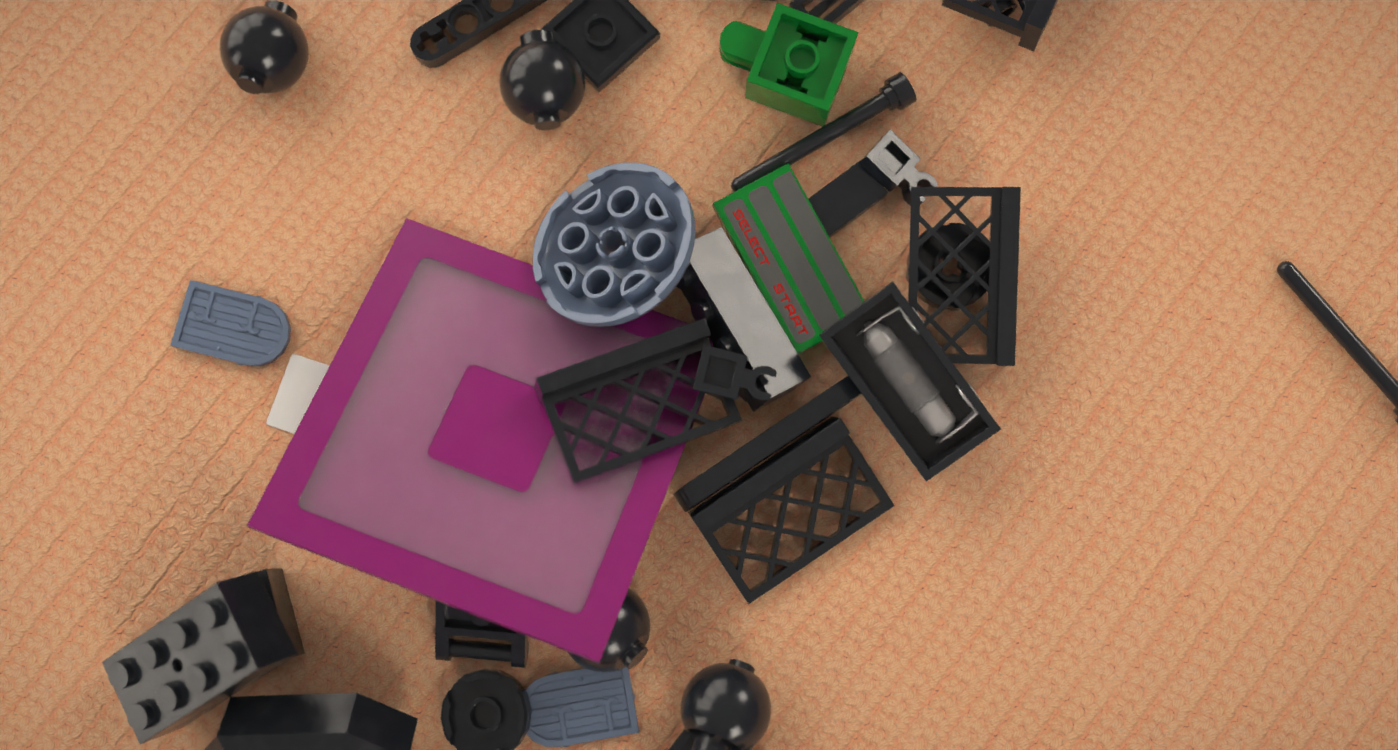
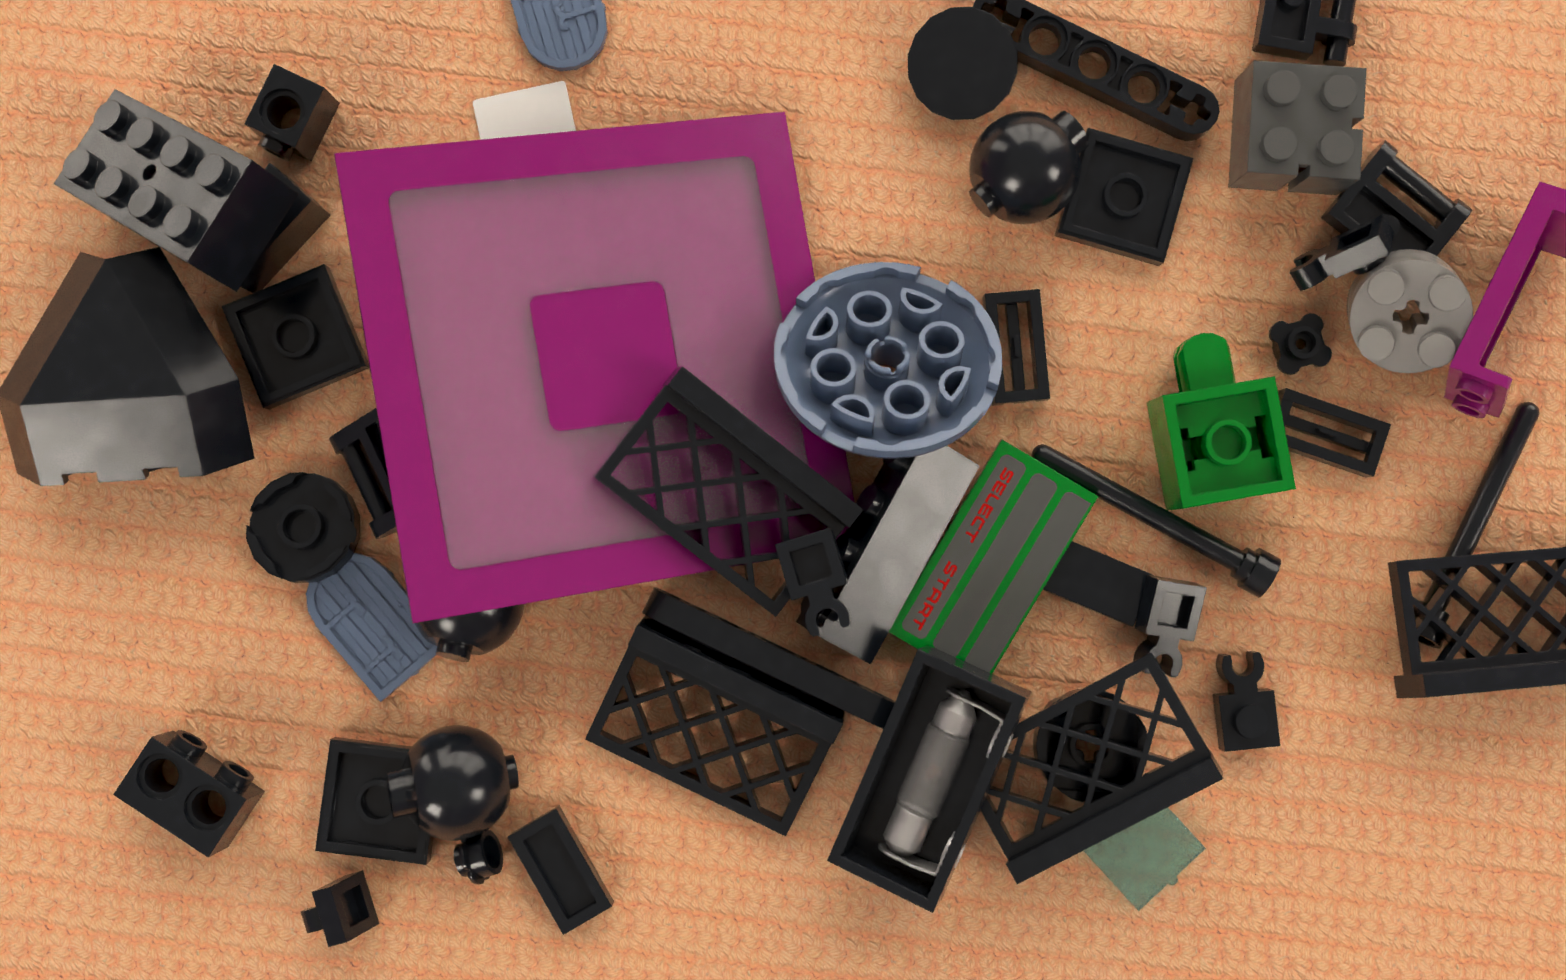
camera: 55 degrees right, 5 degrees up
(179, 547) = (284, 92): none -> black brick
(351, 642) = (295, 337): none -> black tile
(448, 83) = (962, 63): none -> black tile
(623, 145) = (1037, 345): none -> black tile
(786, 725) = (479, 857): none -> black plate
(828, 674) = (561, 870): none -> black tile
(988, 154) = (1245, 714): none -> black plate
(1045, 274) = (1146, 856): none -> clear light blue piece

